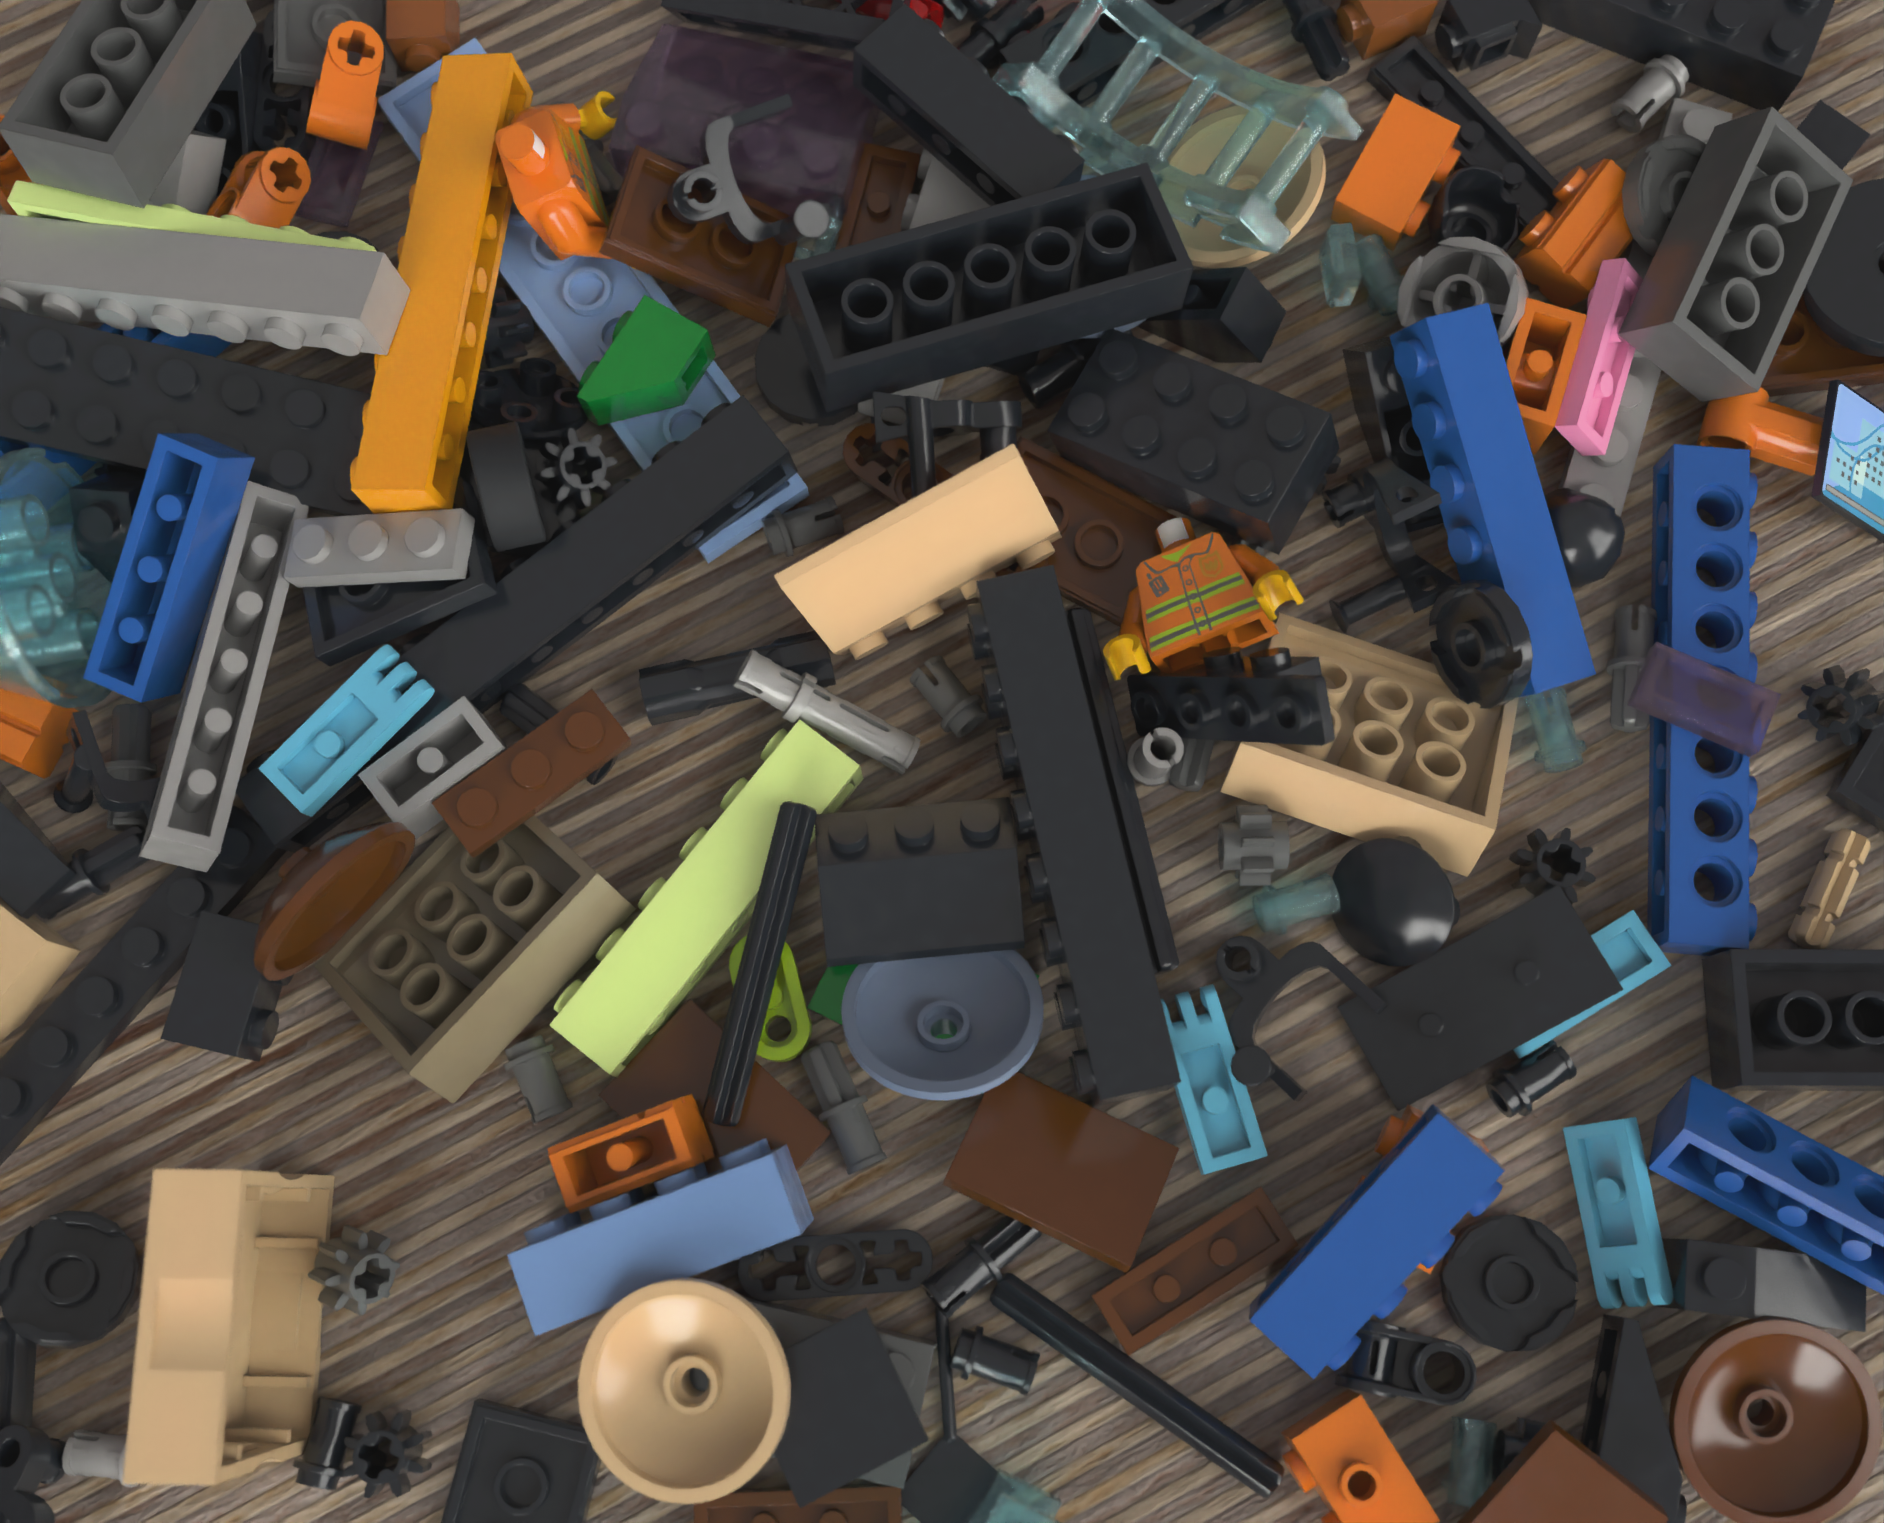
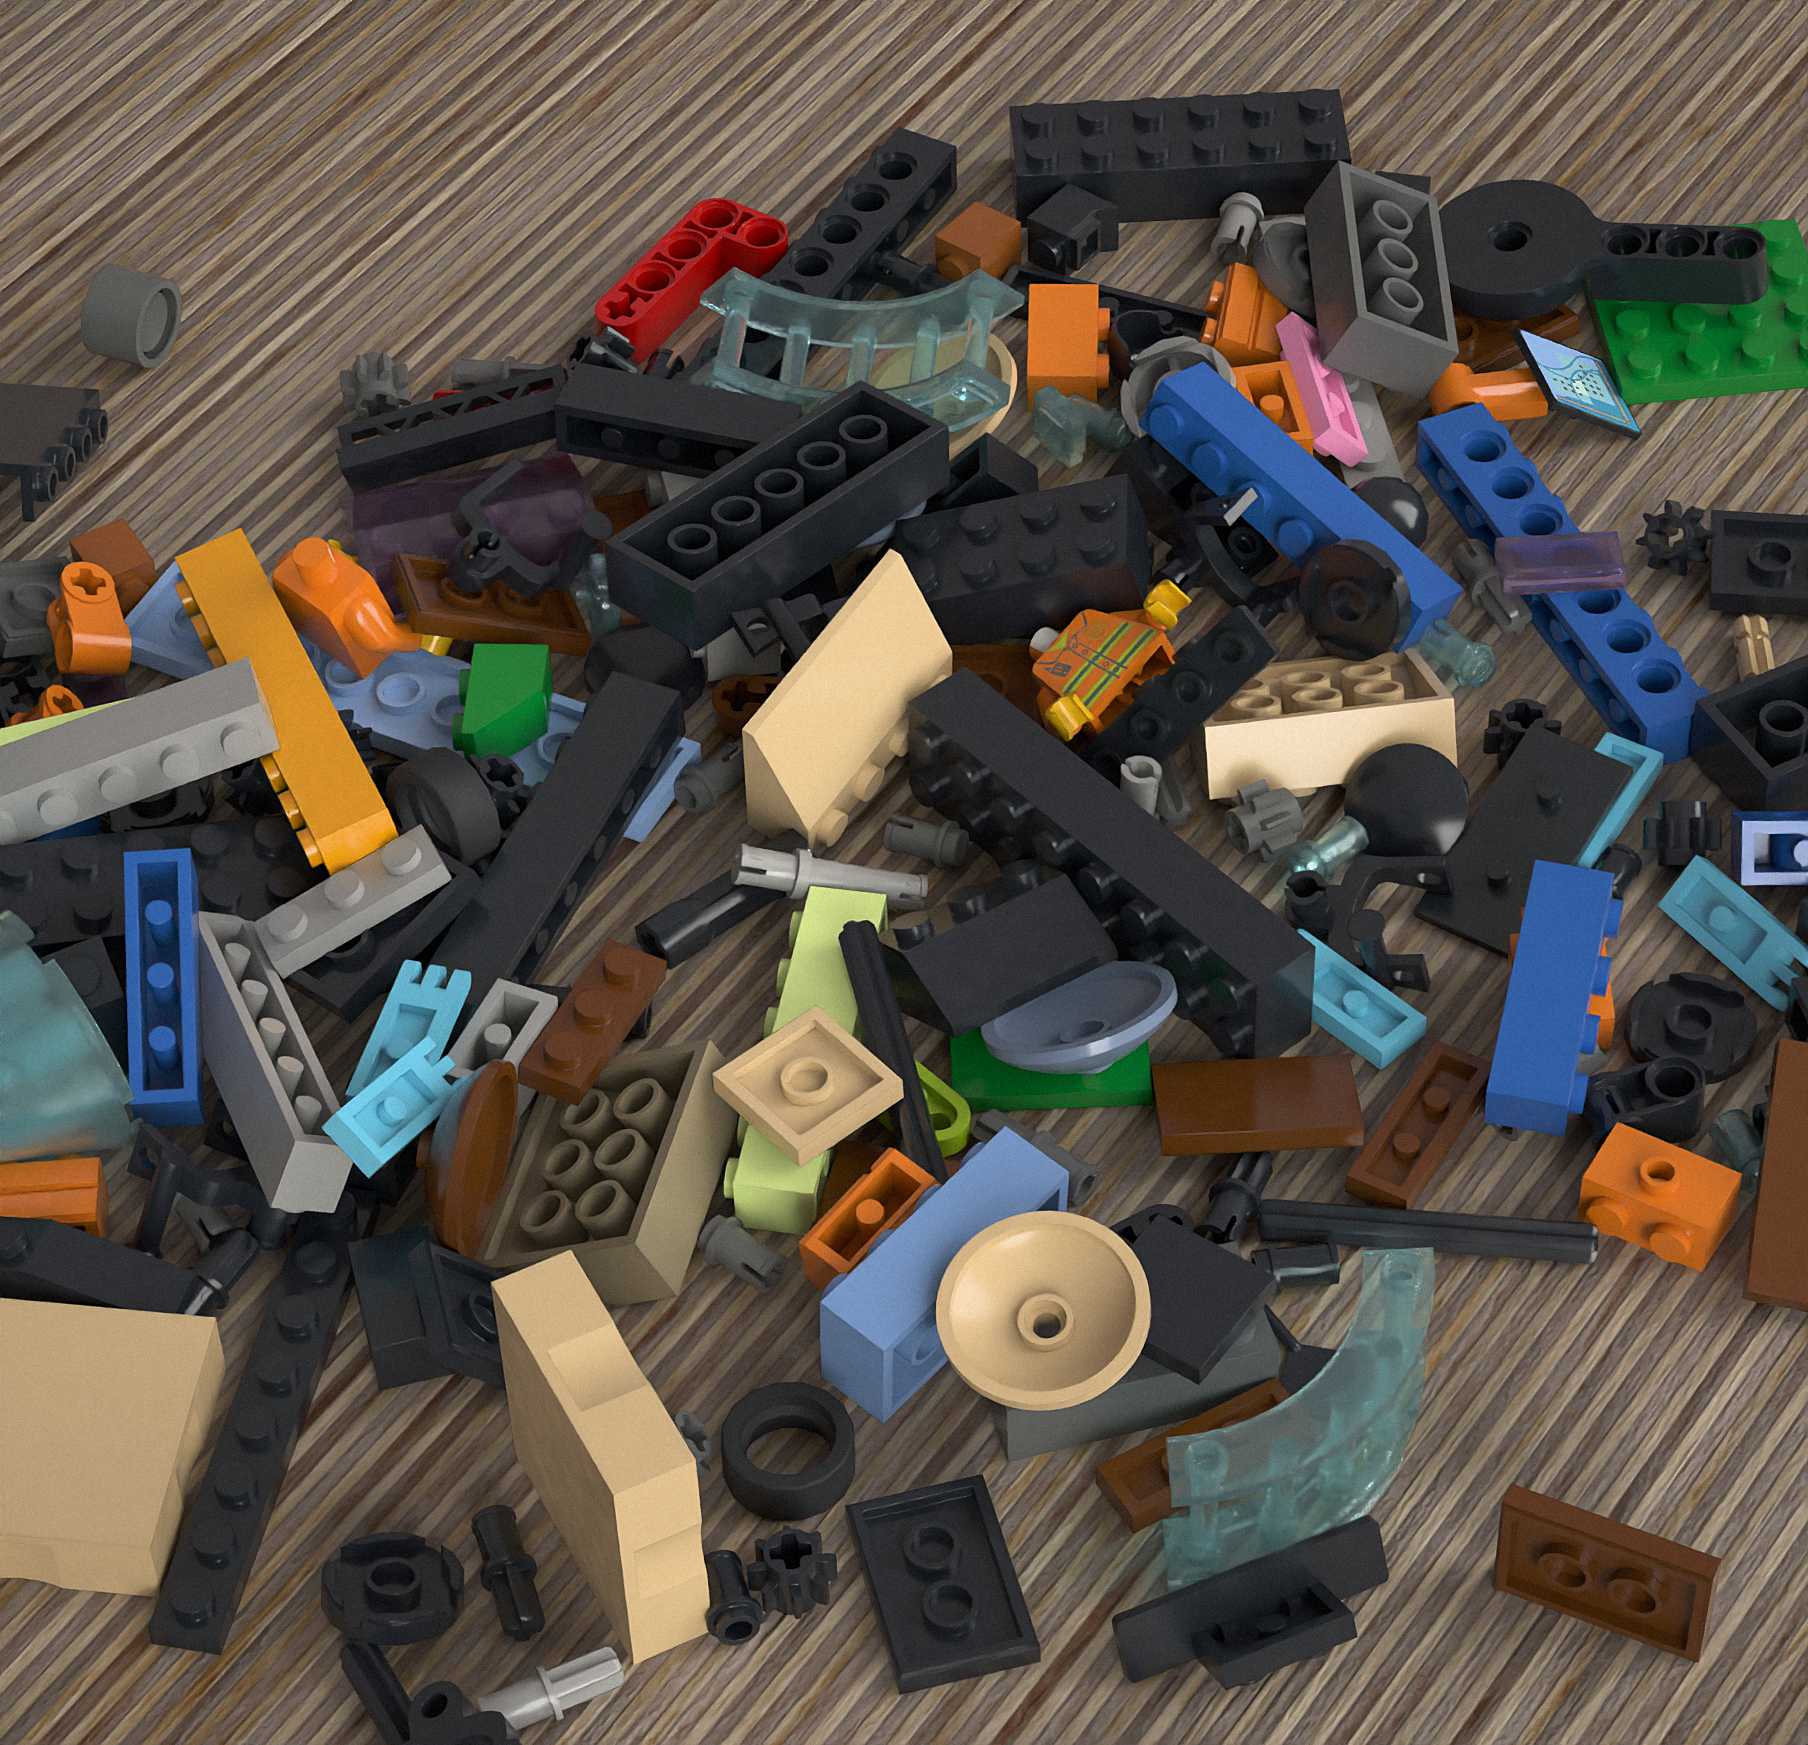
camera: 30 degrees left, 30 degrees down
(267, 1052) = (458, 1311): none -> black tile
(271, 828) = (393, 1108): none -> medium azure hinge
(405, 1313) = (788, 1495): none -> black tyre
(657, 967) = (808, 1086): none -> tan plate
(1631, 1069) = (1681, 832): none -> black gear

